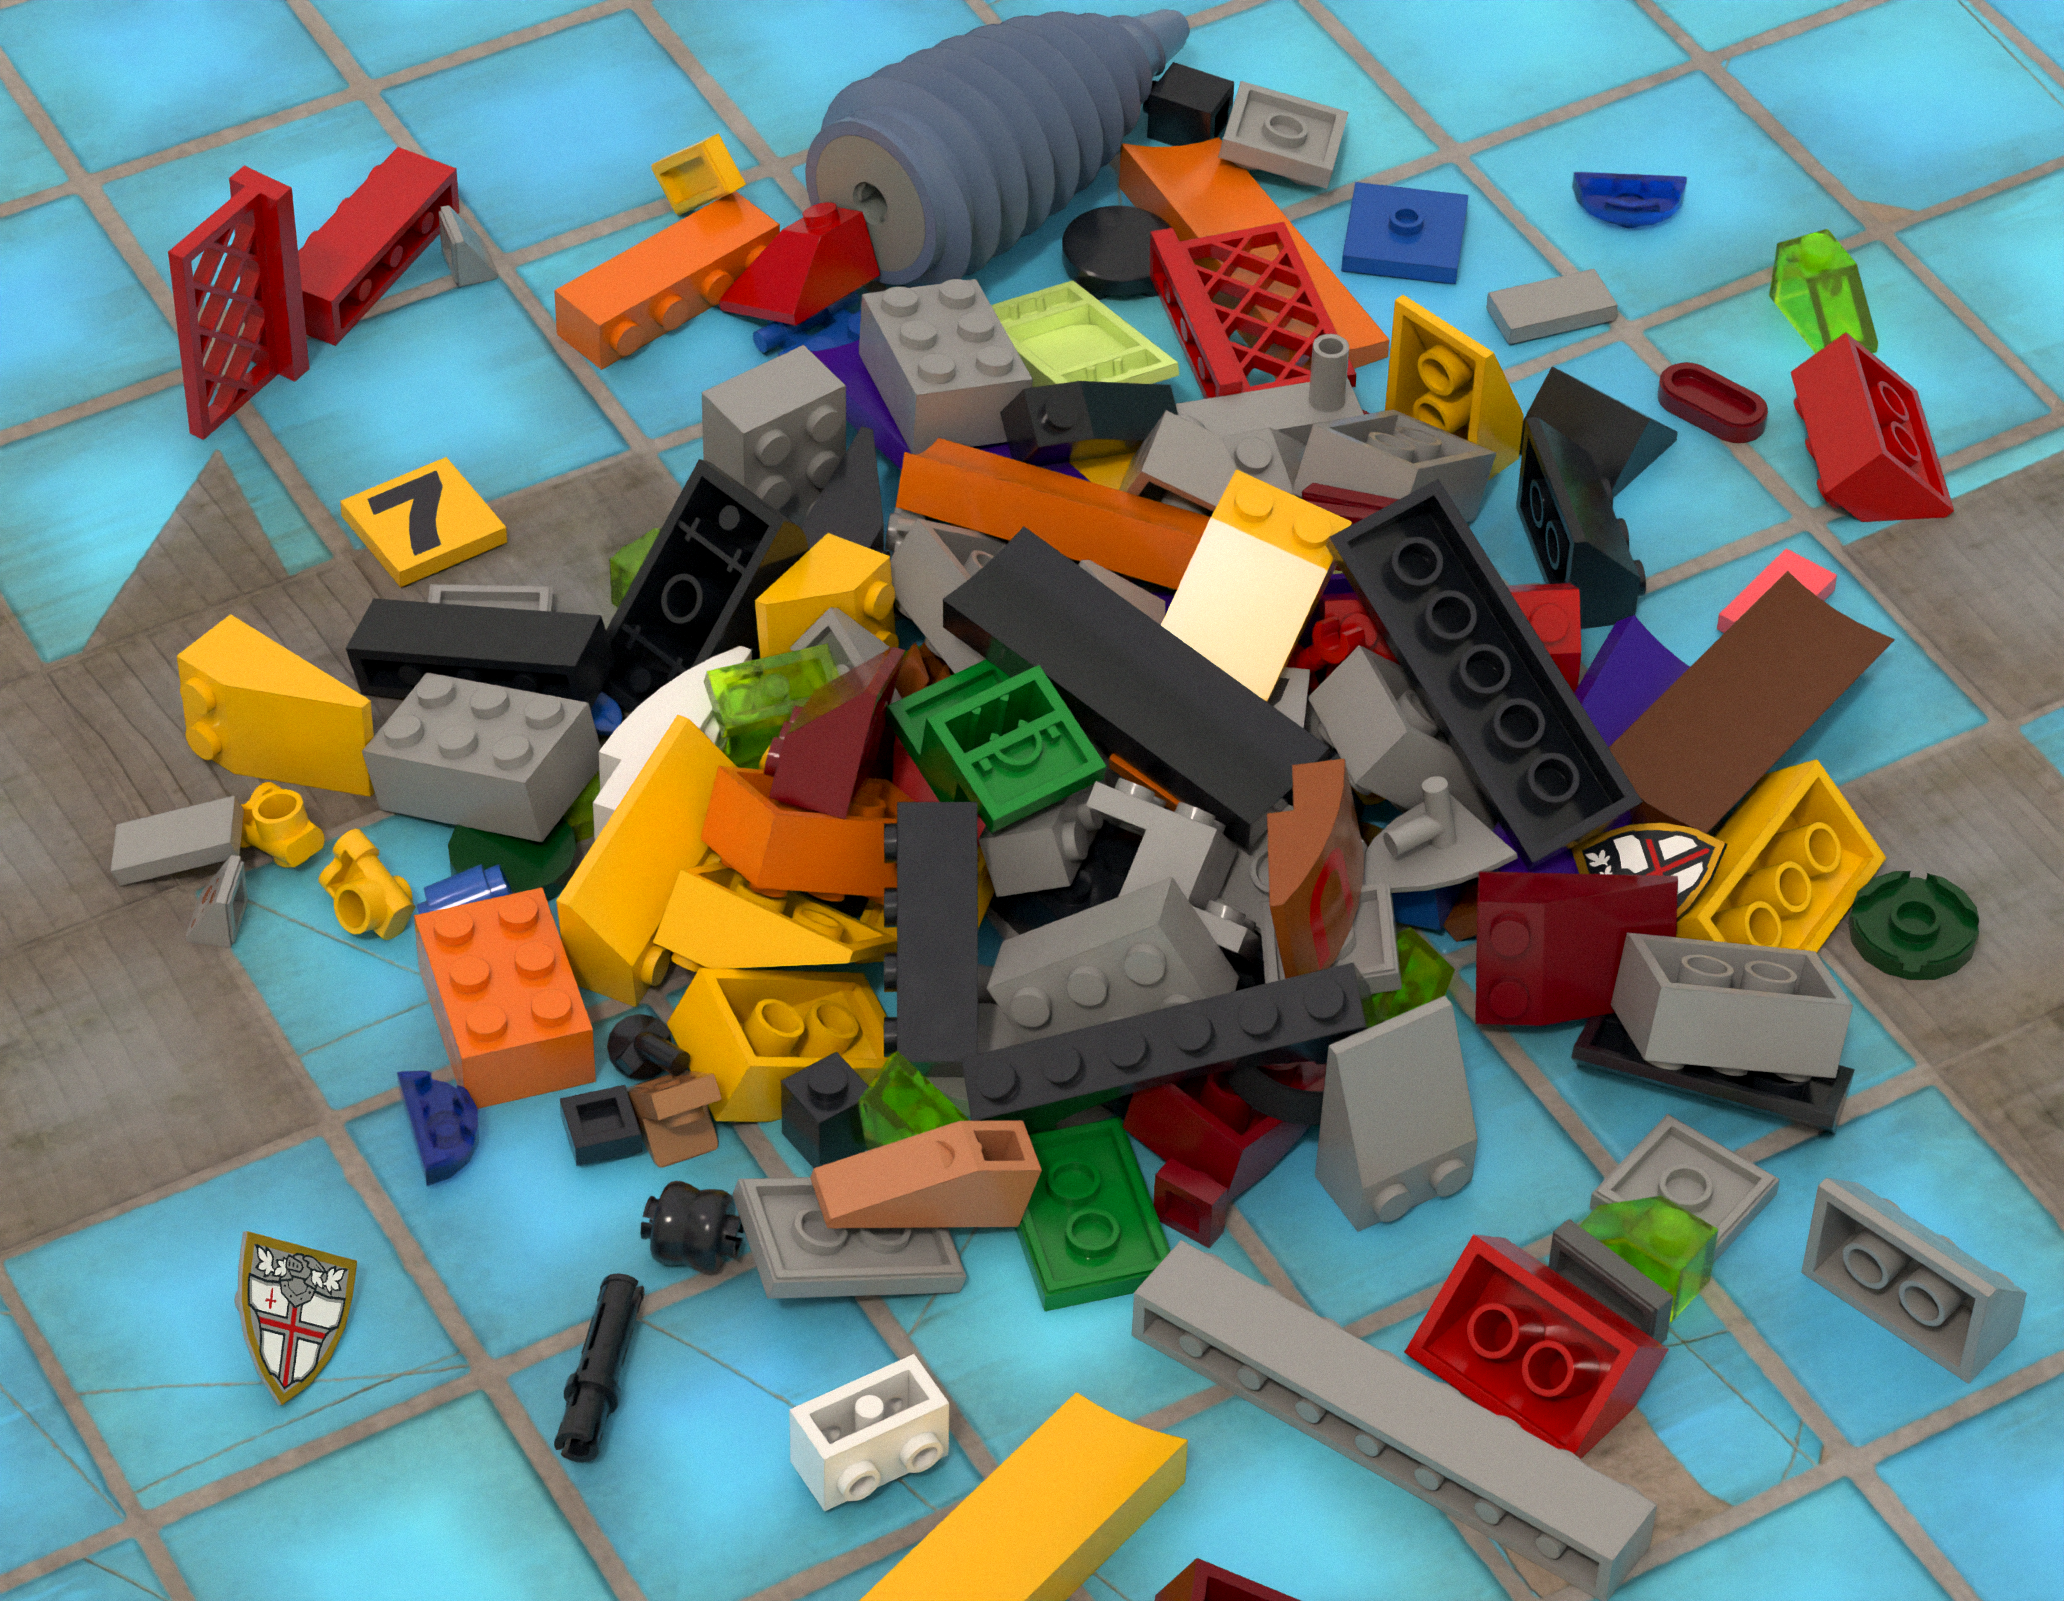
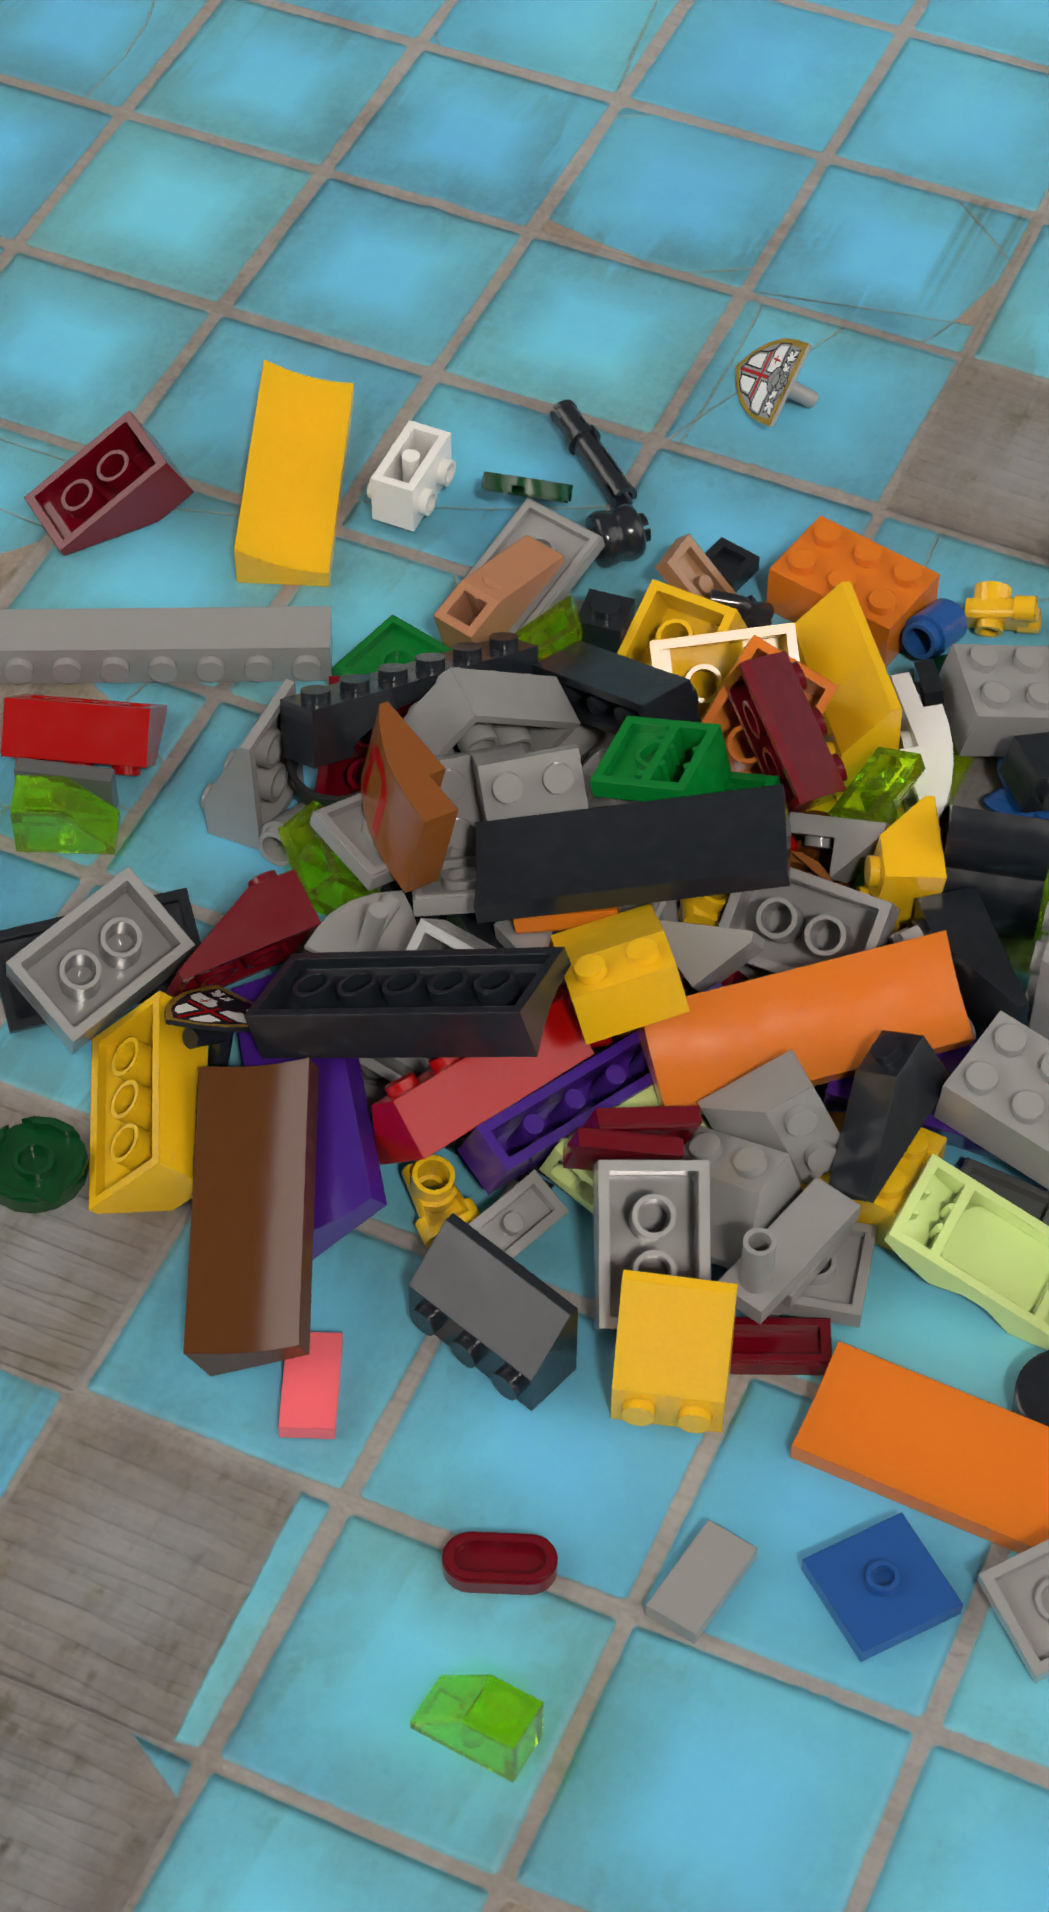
camera: 145 degrees right, 5 degrees up
(441, 1123) = (800, 512): clear blue plate -> none
(570, 815) = (928, 683): none -> black plate
(742, 1333) = (527, 487): none -> dark green tile
(1197, 322) = (923, 1313): red fence -> none
(1613, 433) = (563, 1467): black slope -> none
(1629, 198) = (730, 1744): clear blue plate -> none
(1694, 1175) = (59, 877): light grey tile -> none
(1868, 436) = (338, 1583): red slope -> none

